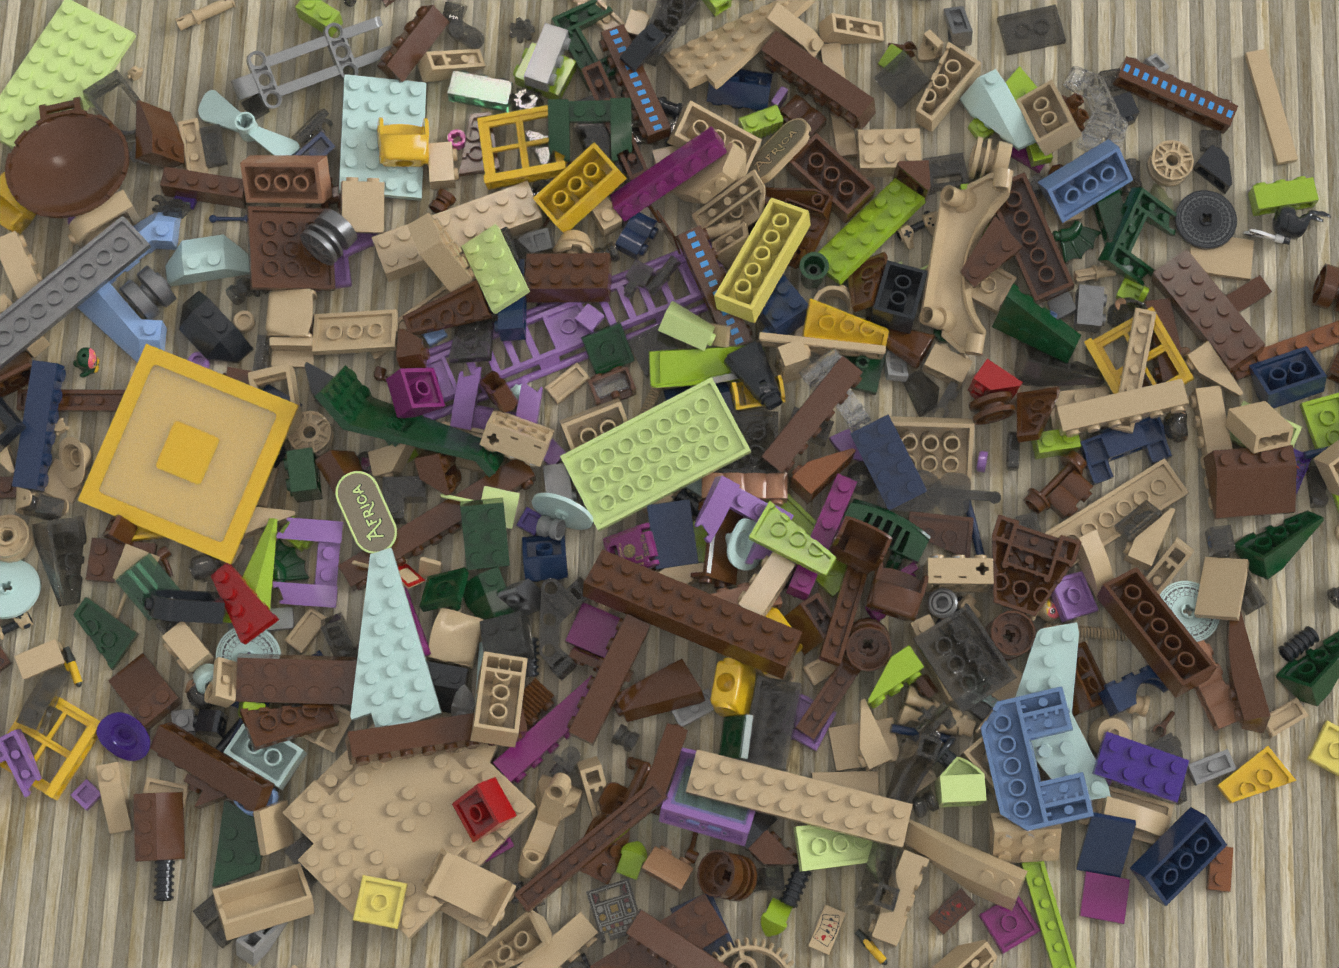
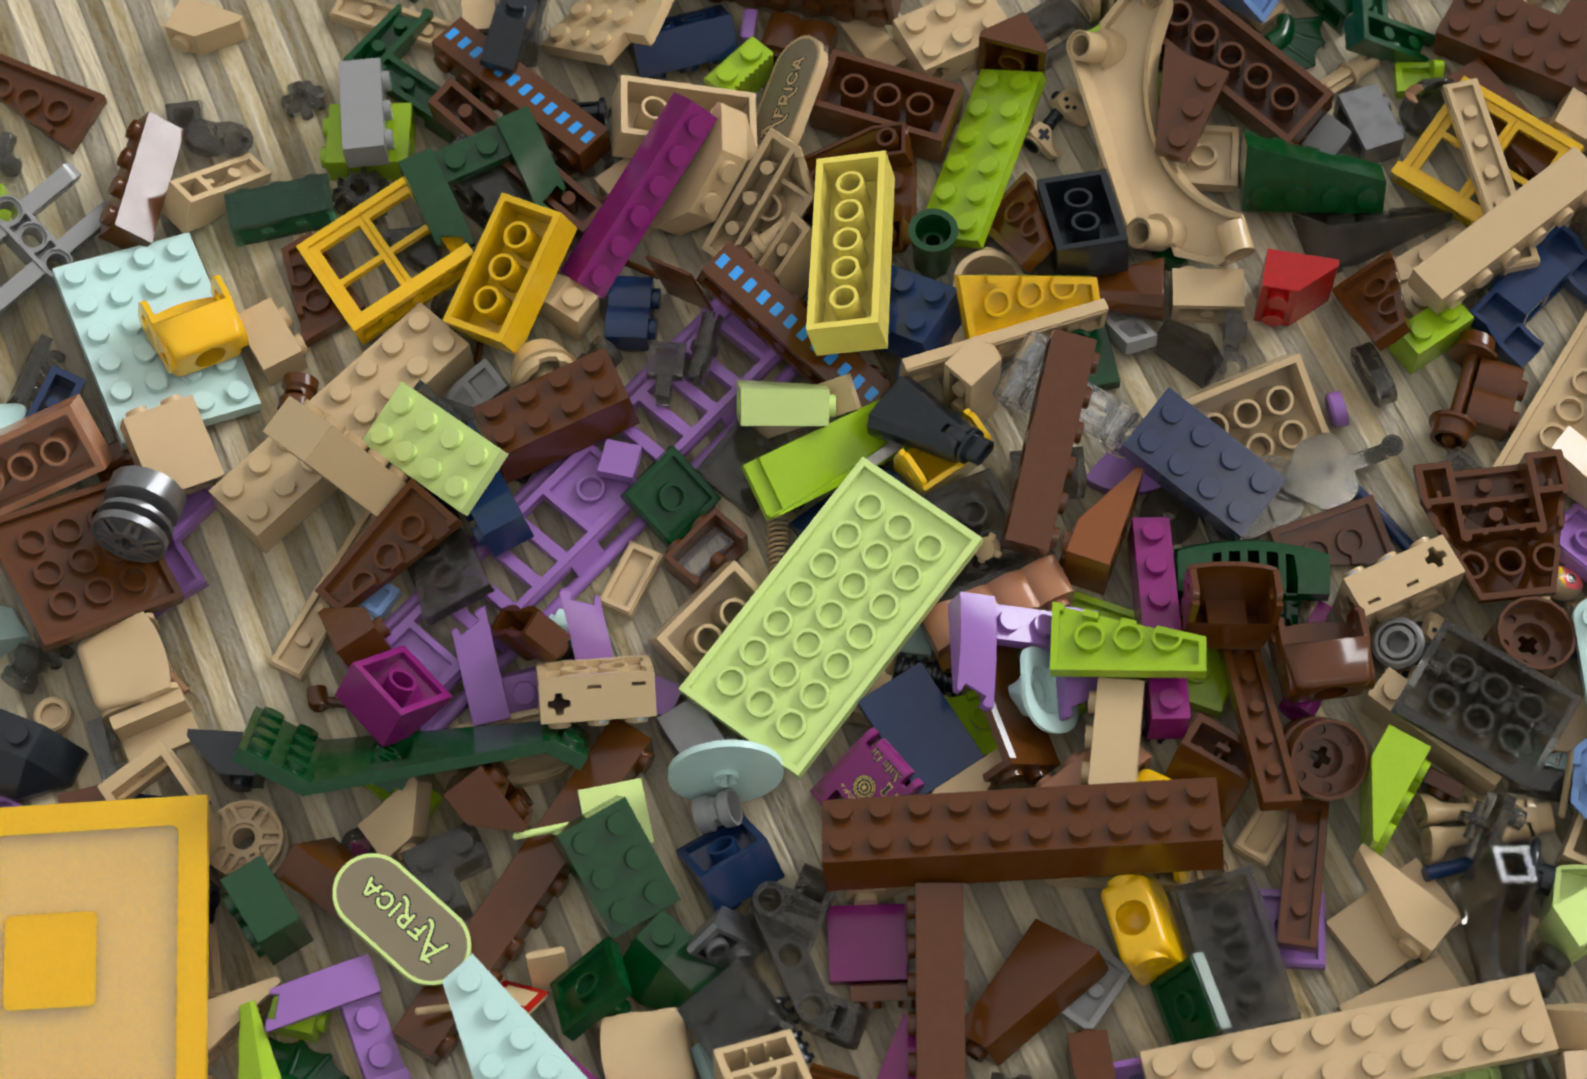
camera: 20 degrees left, 10 degrees down
(355, 332) = (247, 649): tan plate -> none
(453, 134) = (275, 285): dark pink bush -> none
(528, 521) = (676, 819): dark purple tile -> none
(754, 456) = (989, 548): none -> tan piece
(992, 408) = (1310, 321): reddish brown wheel -> none

